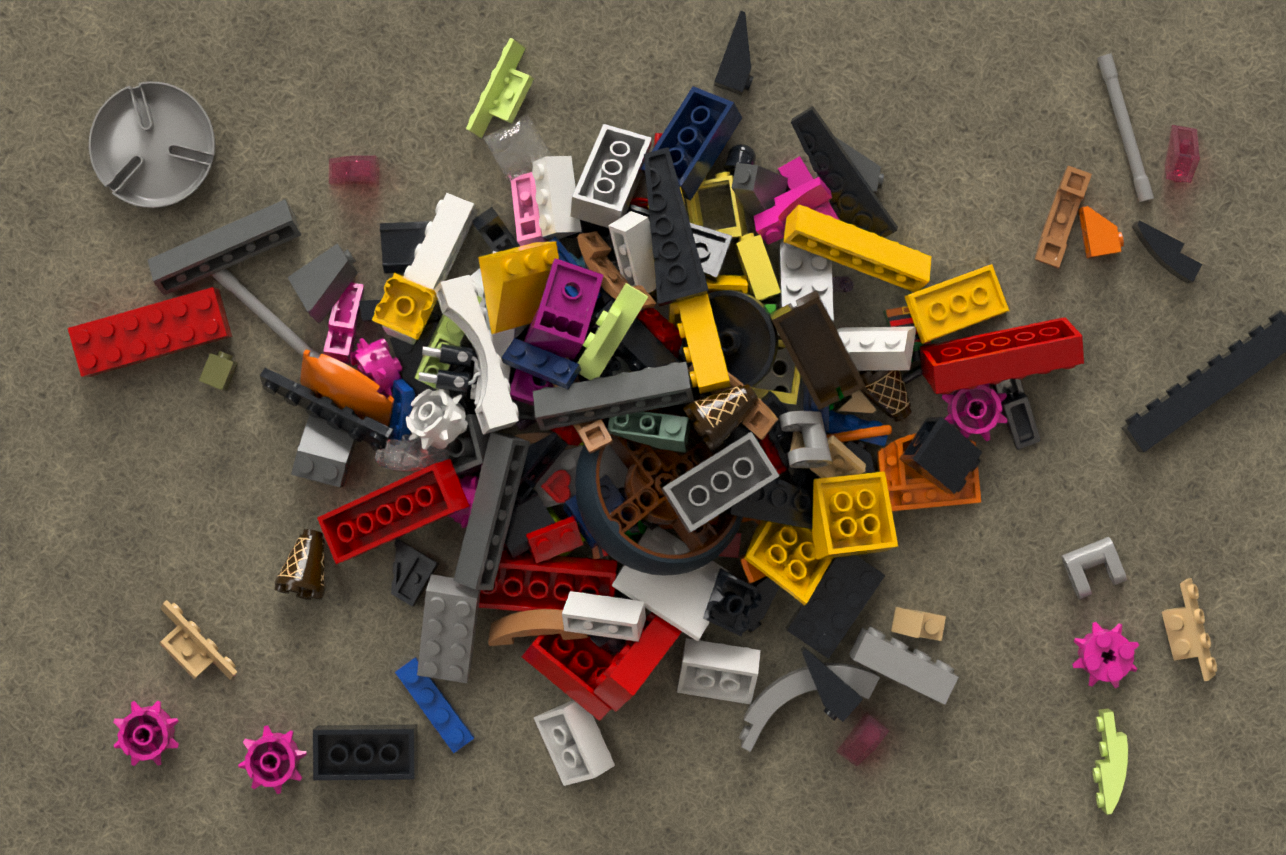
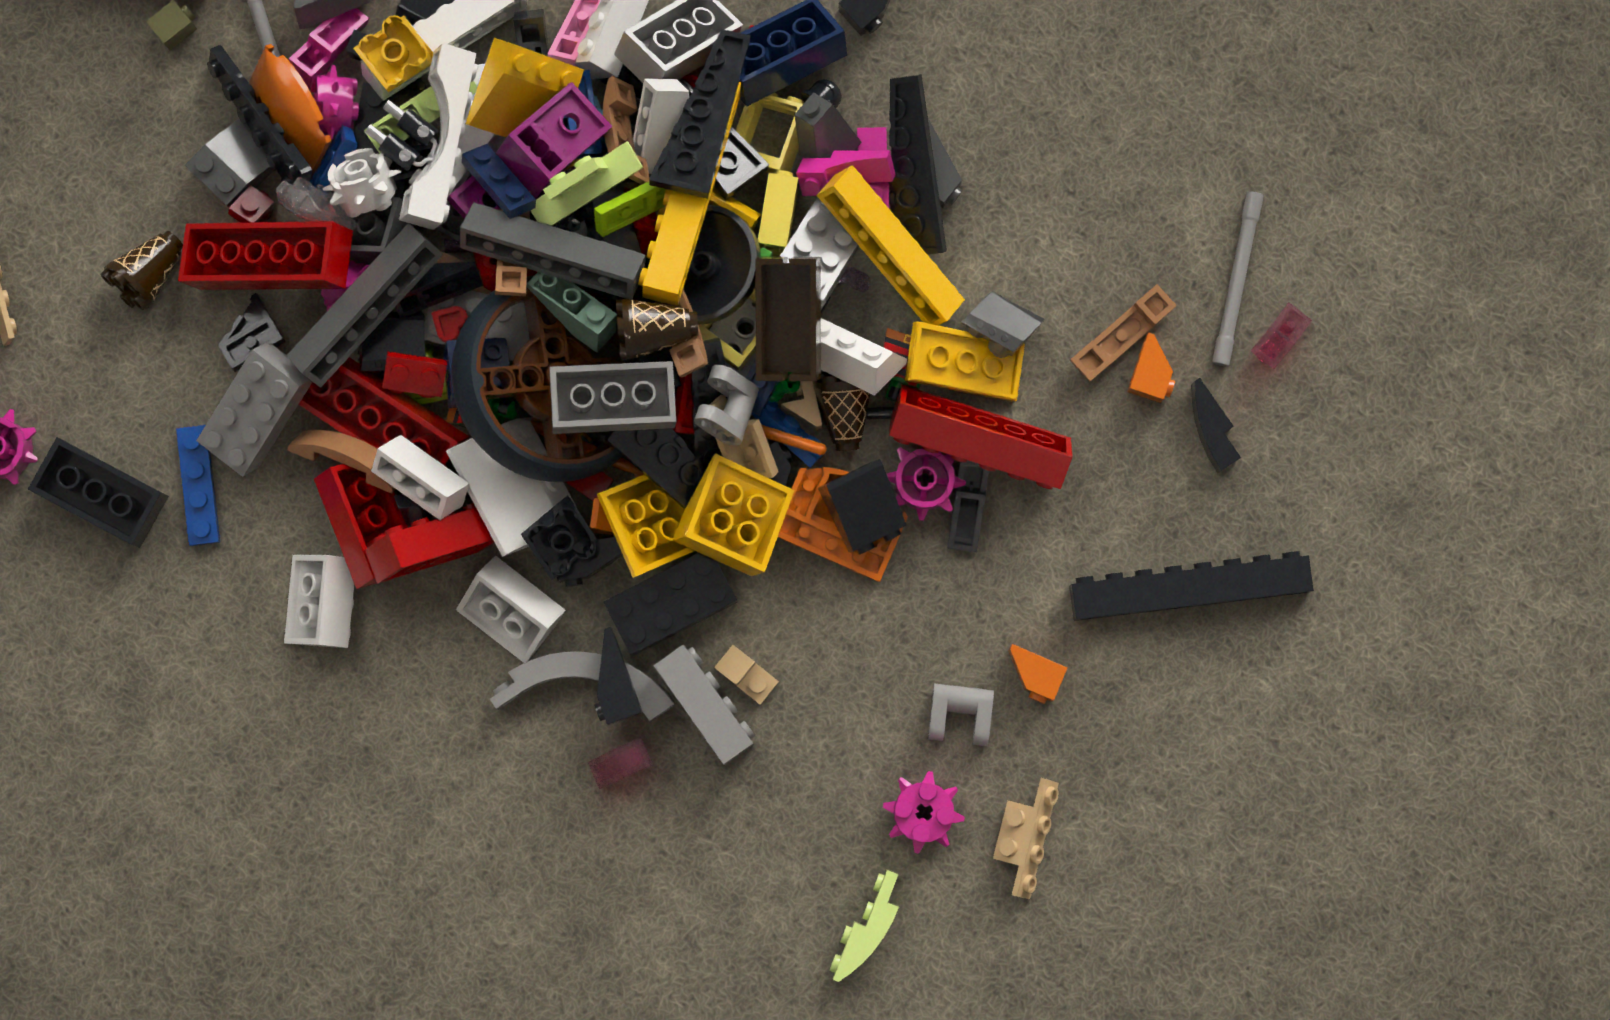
camera: 30 degrees right, 5 degrees down
(358, 477) = (252, 206): none -> bracket
(650, 331) = (628, 208): none -> lime hinge
(969, 259) = (1002, 324): none -> slope
(1135, 507) = (1037, 674): none -> orange slope

